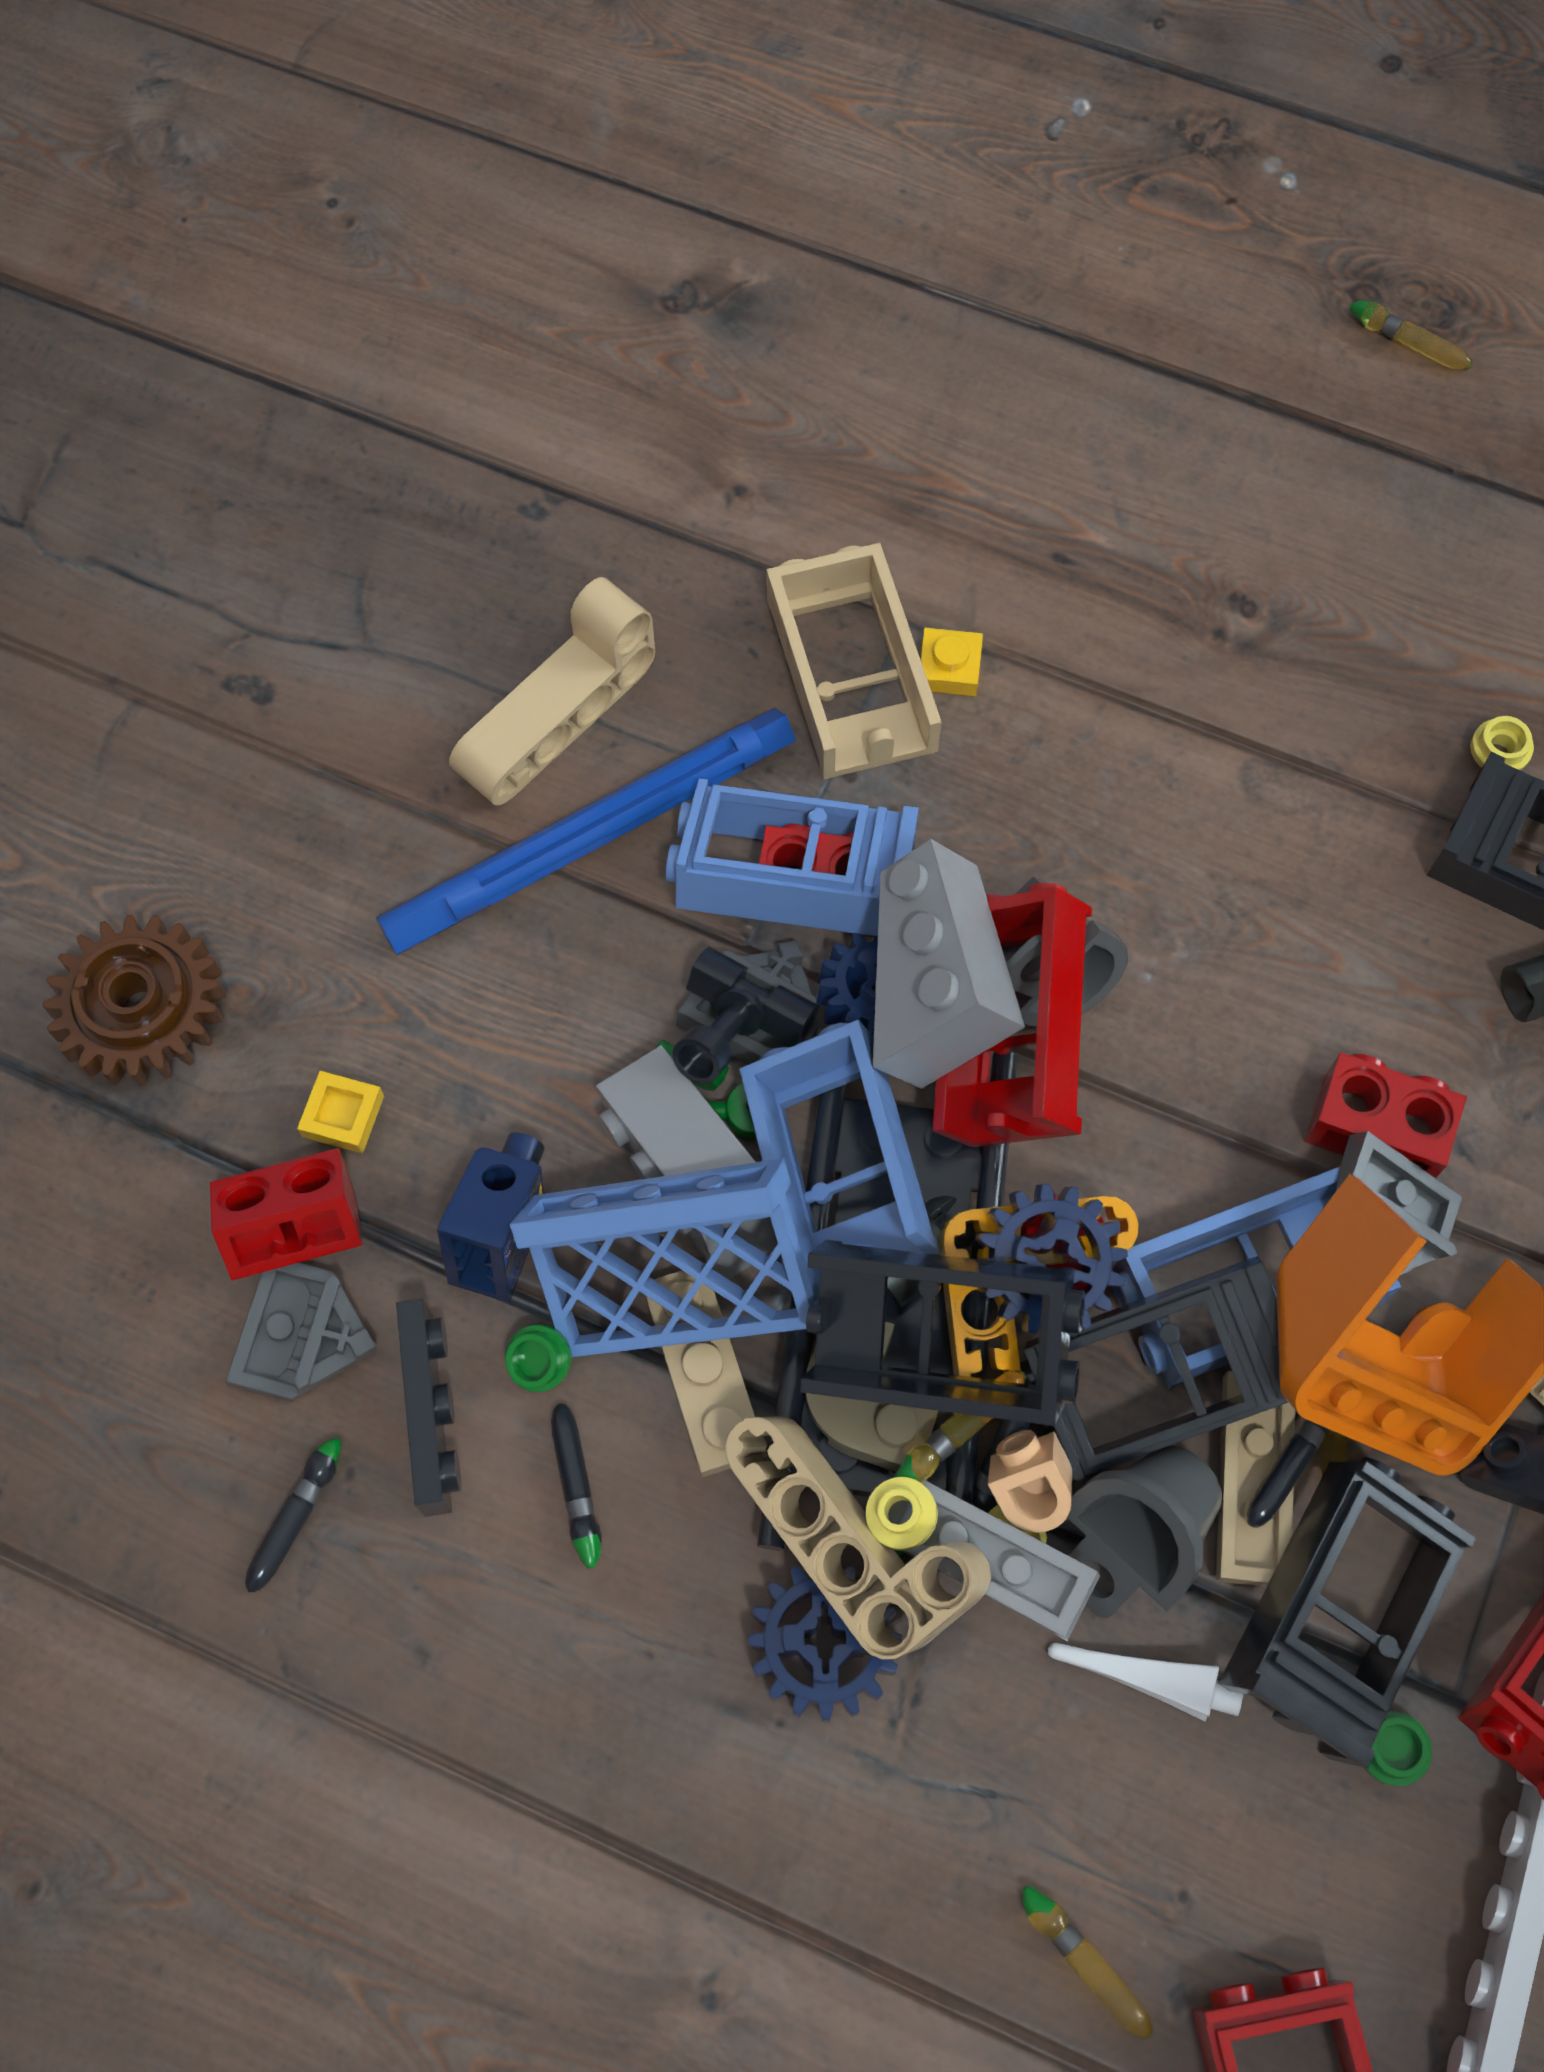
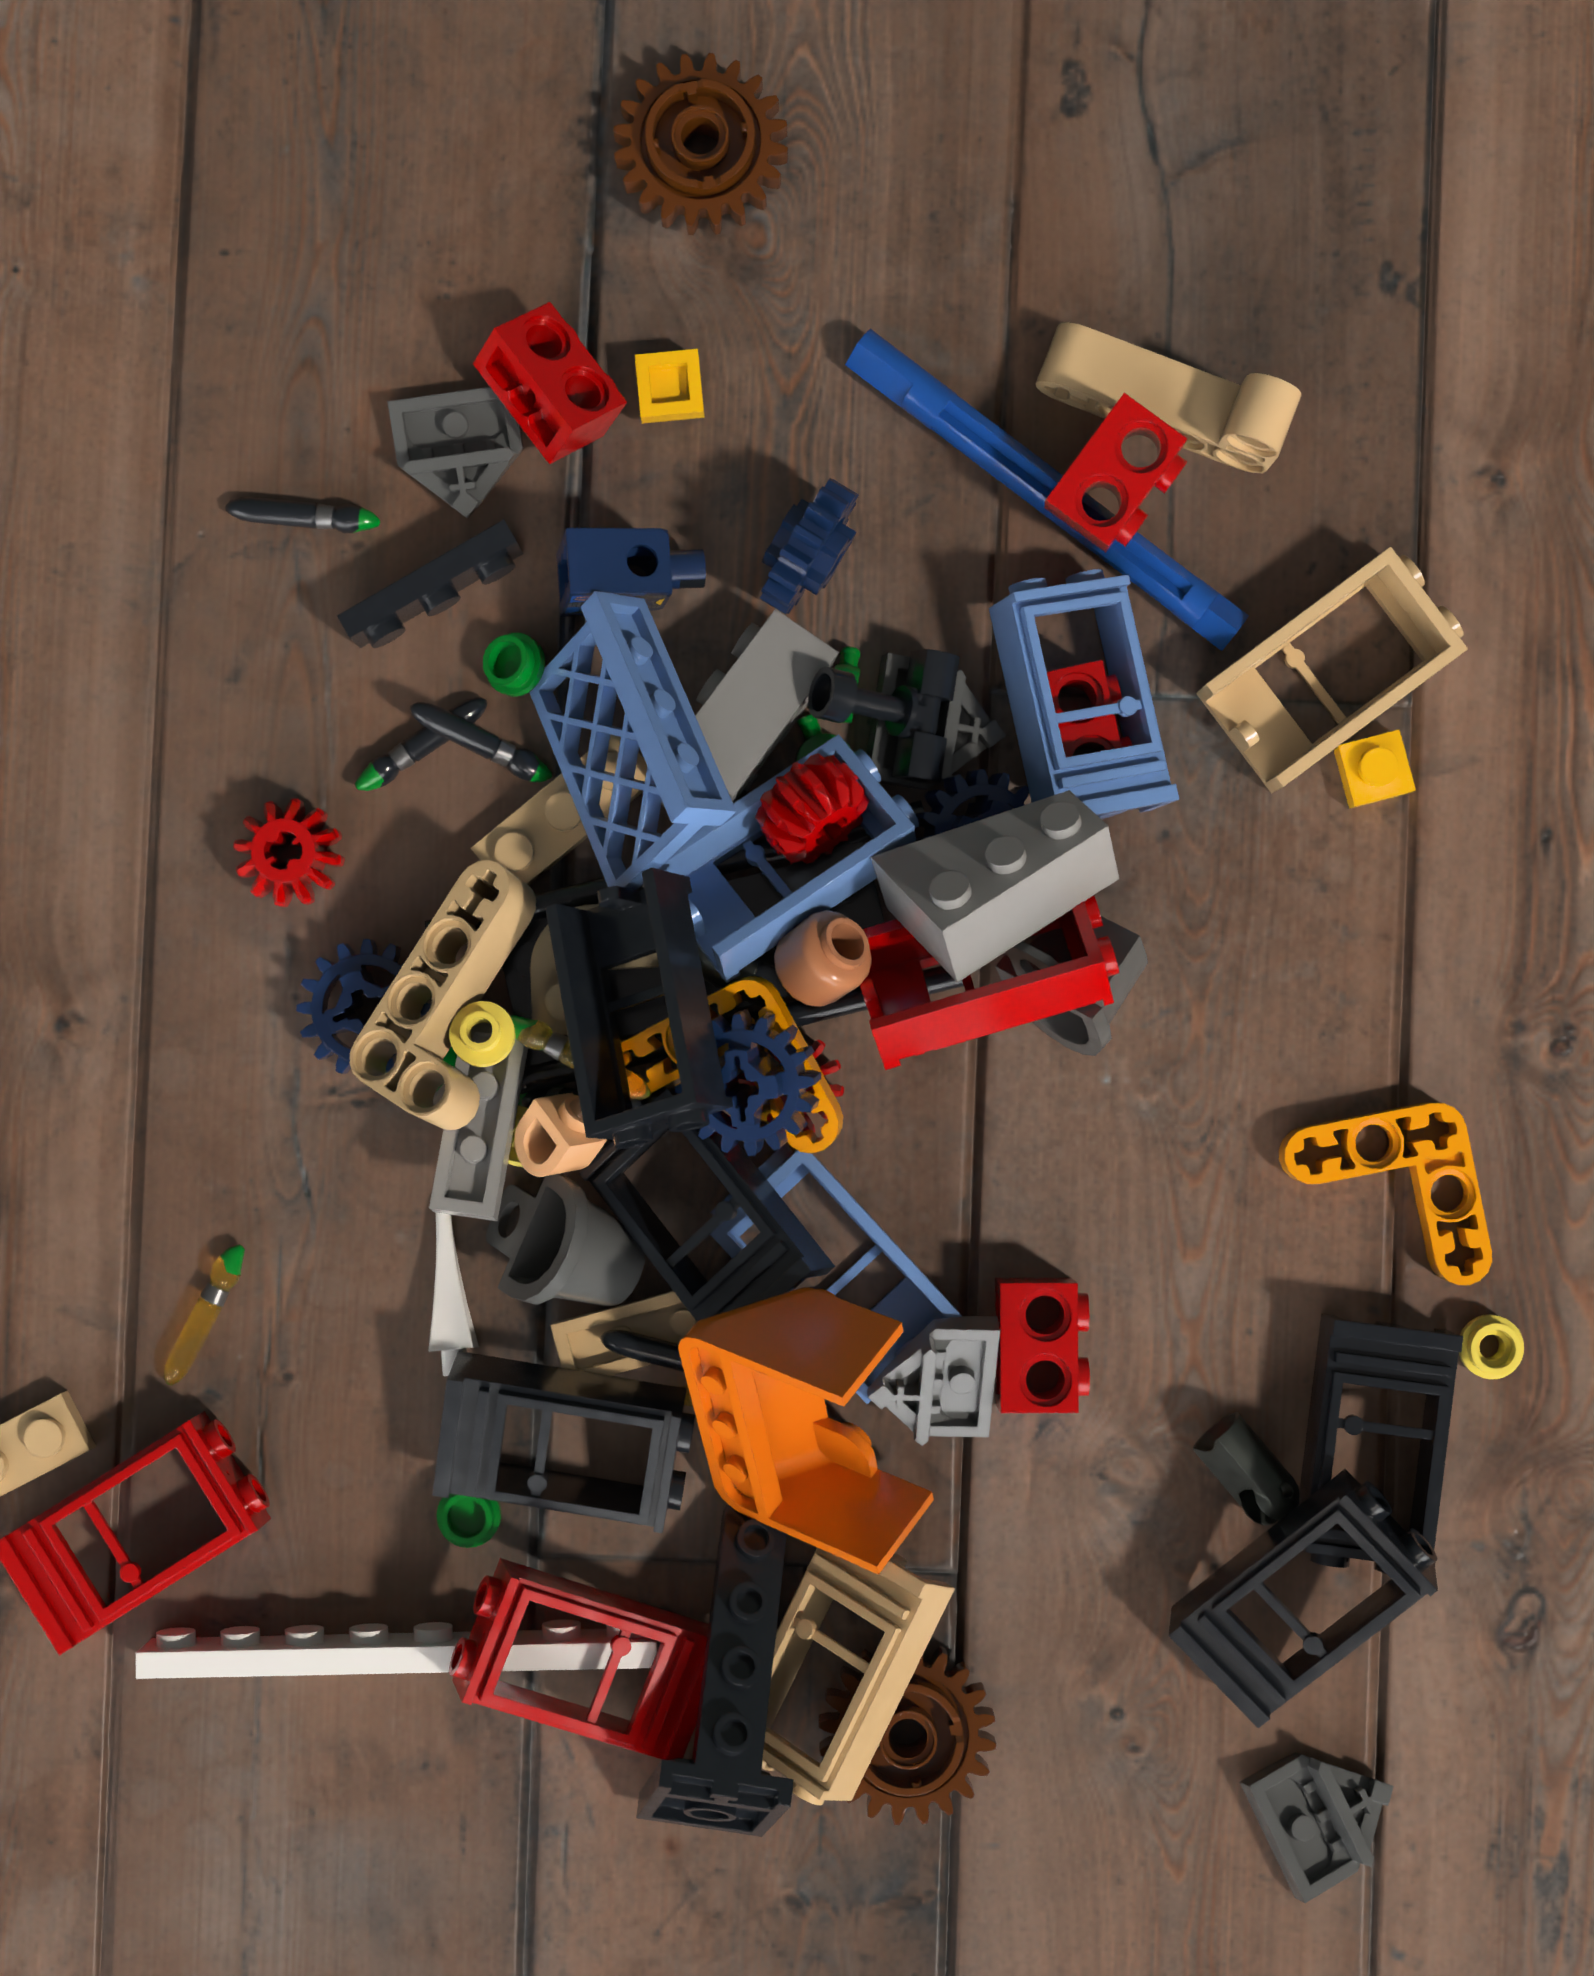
camera: 65 degrees right, 20 degrees up
(552, 1031) = (808, 546): none -> dark blue gear
(596, 754) = (1104, 466): none -> red brick
(607, 1669) = (279, 833): none -> red gear
(634, 1393) = (519, 761): none -> black piece
(802, 1112) = (812, 808): none -> red gear
(951, 1151) = (823, 958): none -> nougat head
(1319, 742) = (1425, 1166): none -> light orange beam

